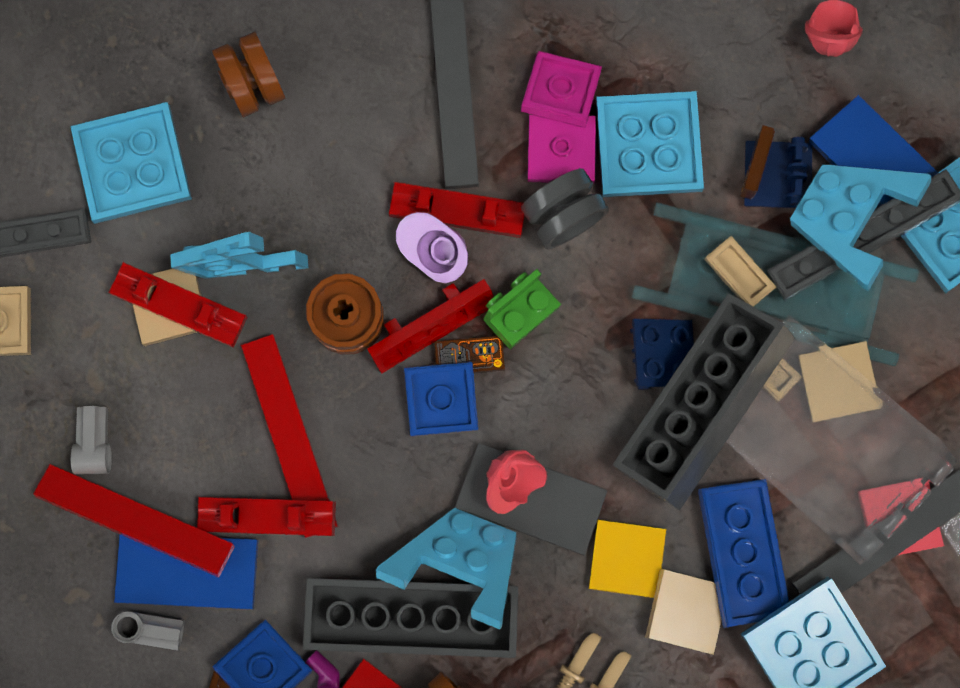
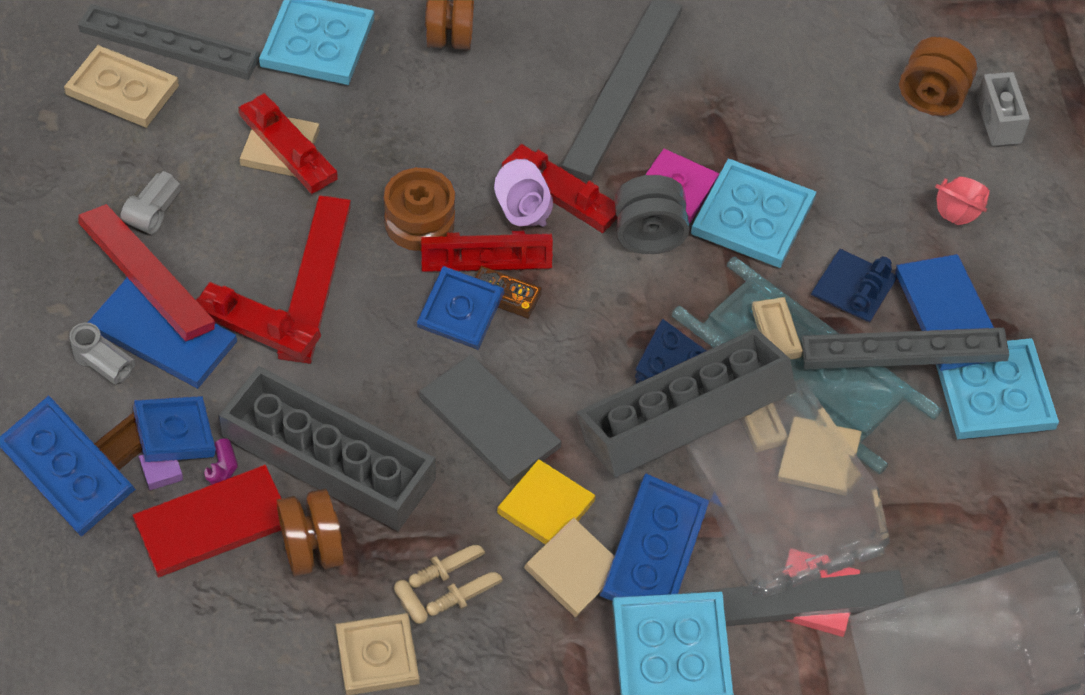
camera: 20 degrees right, 25 degrees down
(233, 257) = (343, 123): medium azure wing -> none
(465, 549) = (404, 413): medium azure wing -> none
(512, 480) = (482, 382): coral piece -> none
(520, 309) = (569, 273): bright green bracket -> none
(561, 89) = (702, 142): dark pink plate -> none
(757, 162) = (839, 260): reddish brown tile -> none
(840, 207) = (899, 313): medium azure wing -> none

